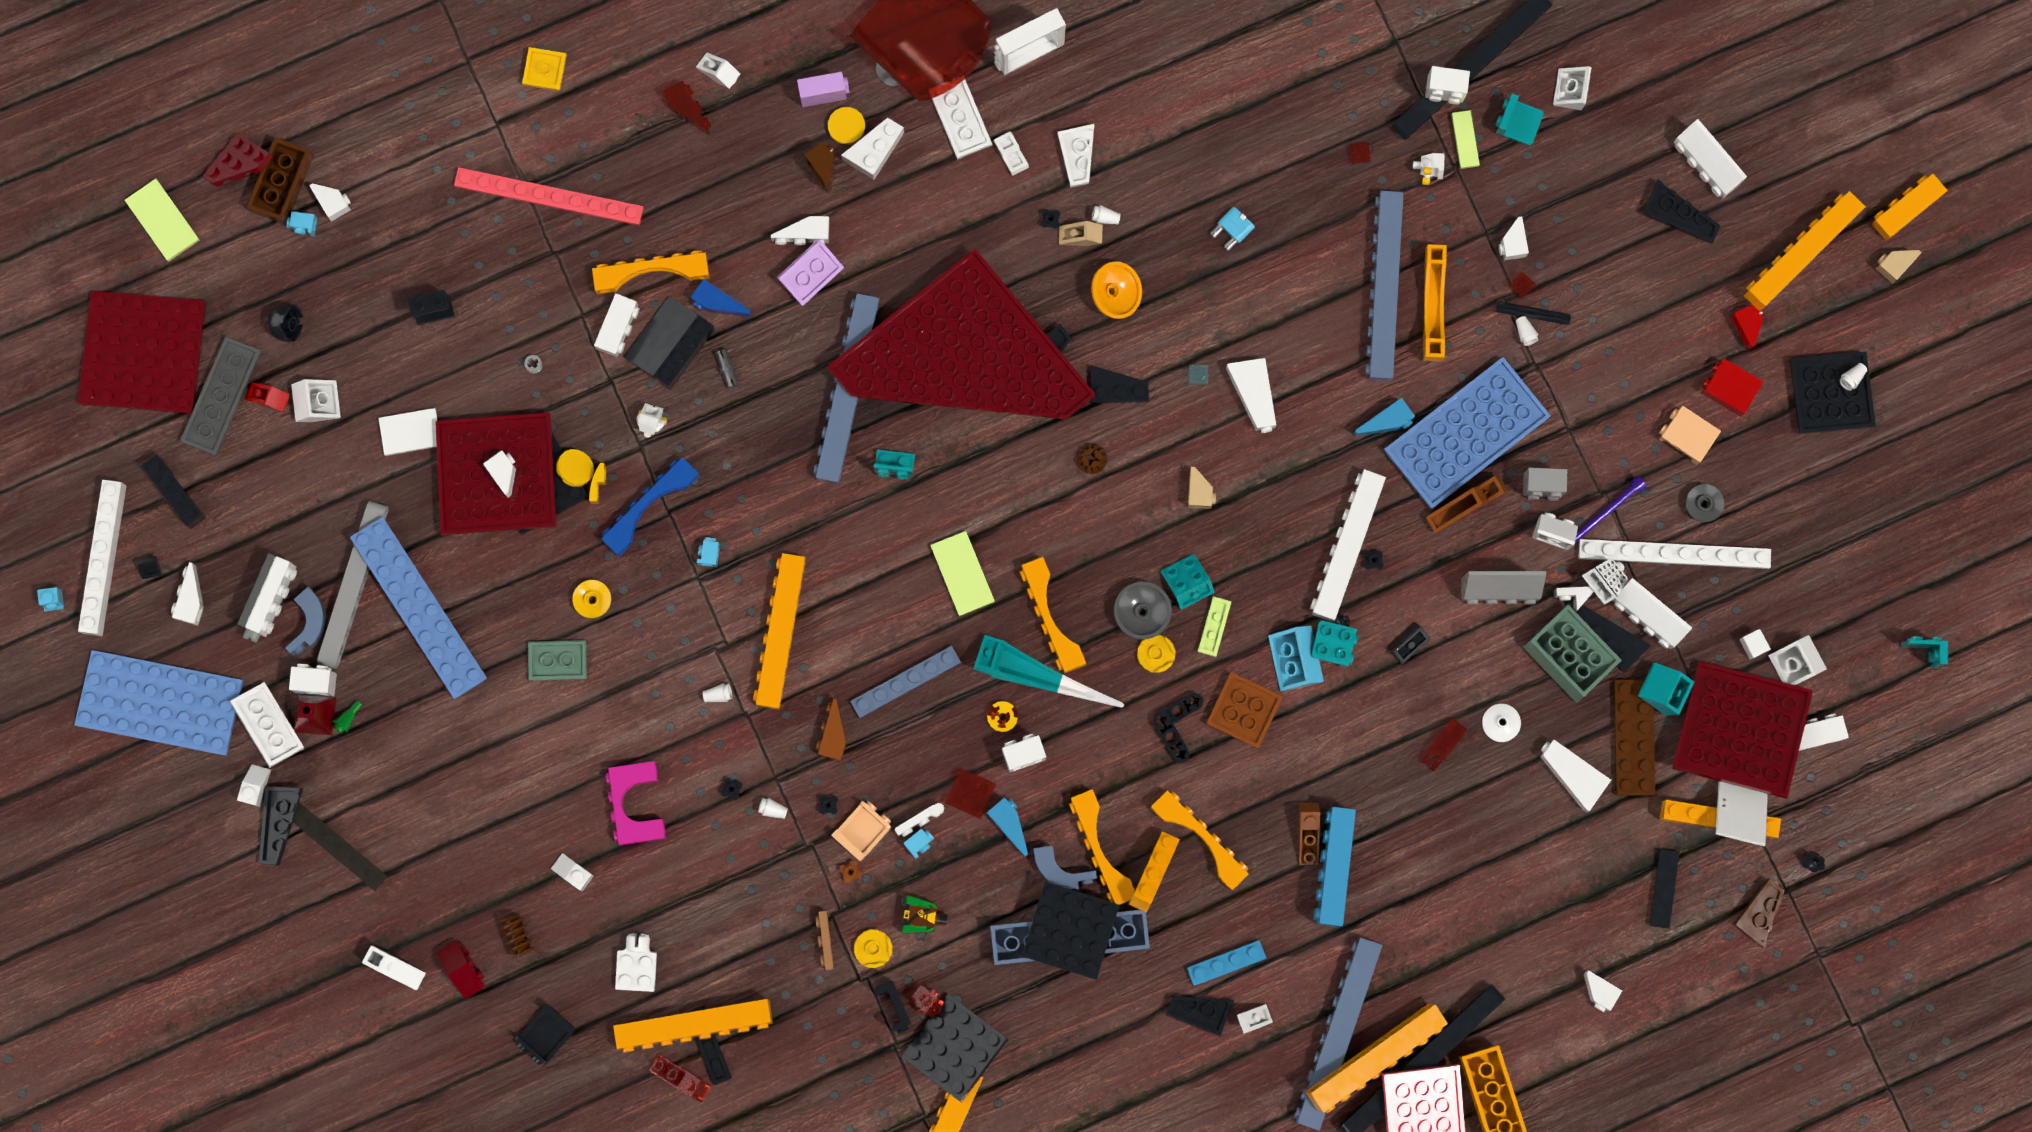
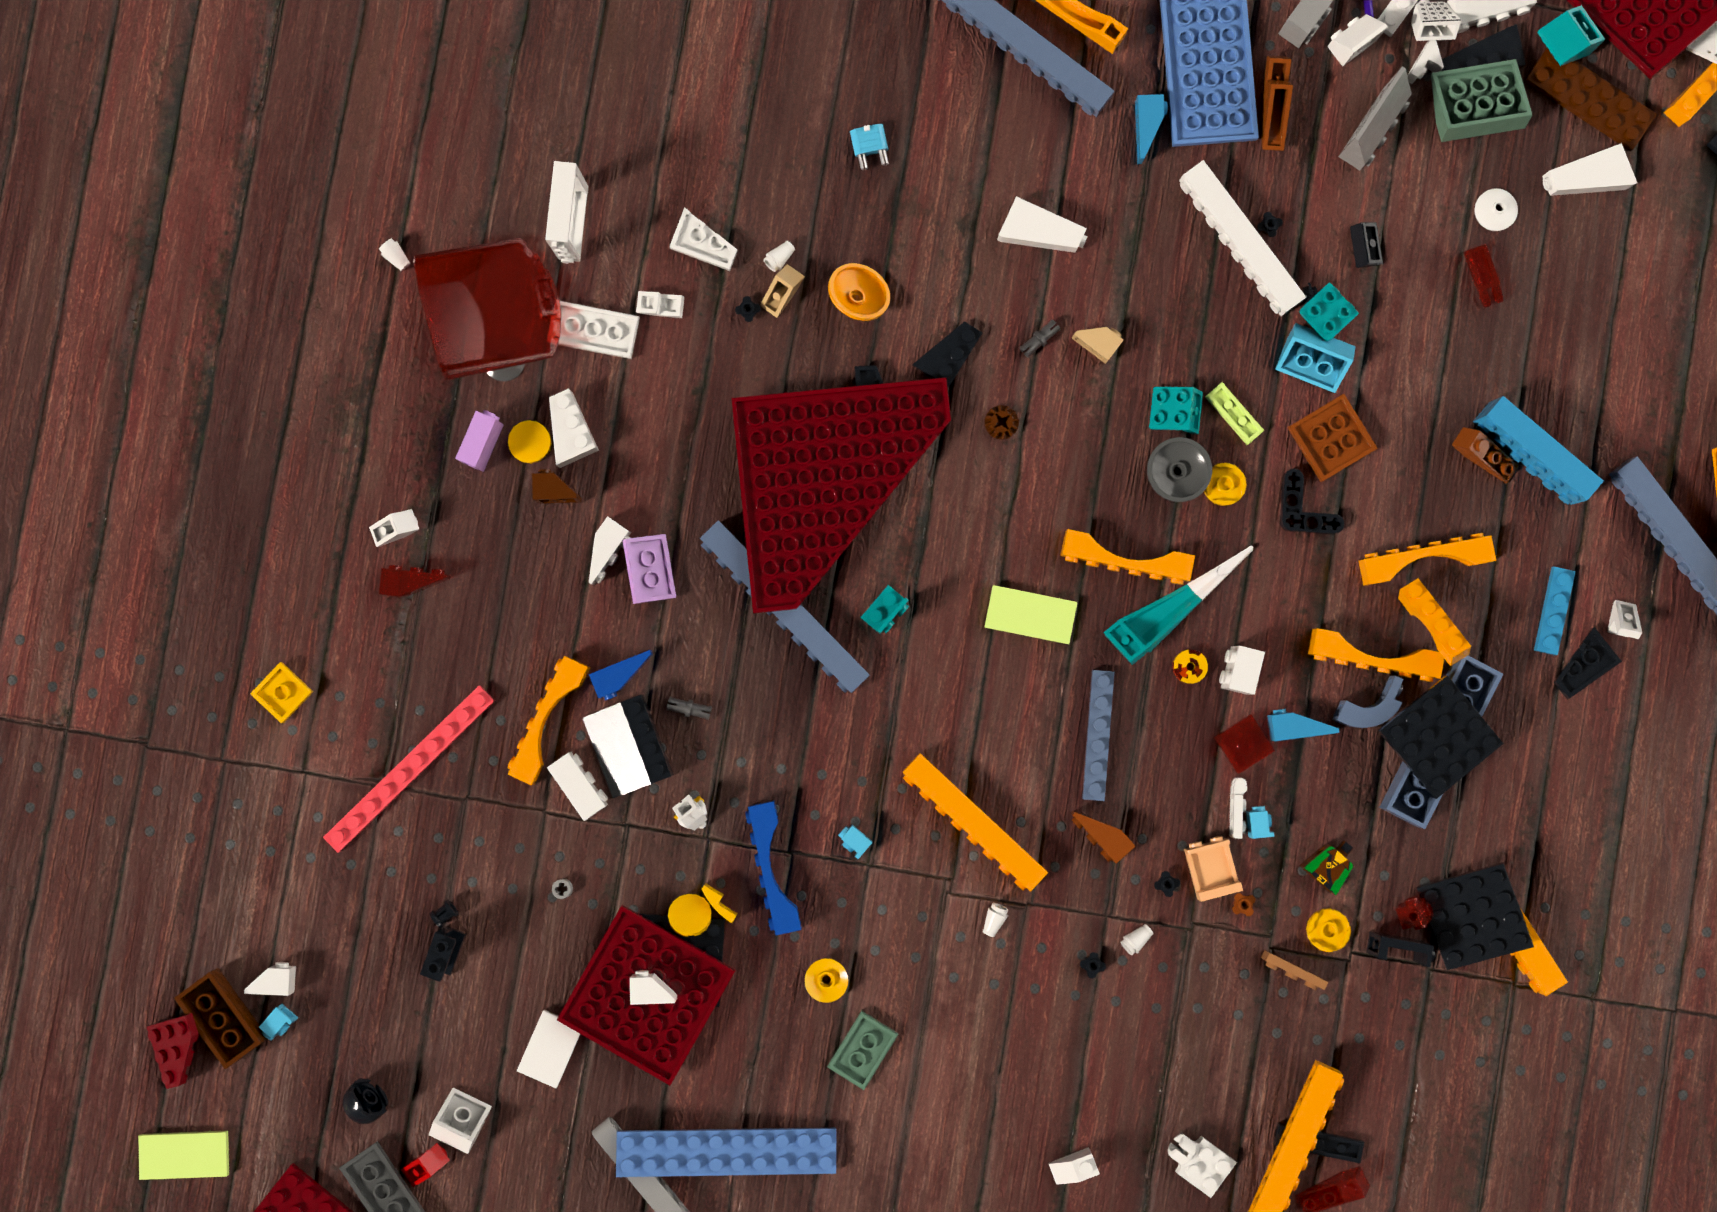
camera: 55 degrees left, 5 degrees up
(459, 290) = (444, 913): none -> black bush
(621, 780) = (1068, 1088): dark pink arch -> none
(1173, 446) = (1039, 338): none -> flat silver pin
(1198, 374) = (988, 269): clear light blue plate -> none

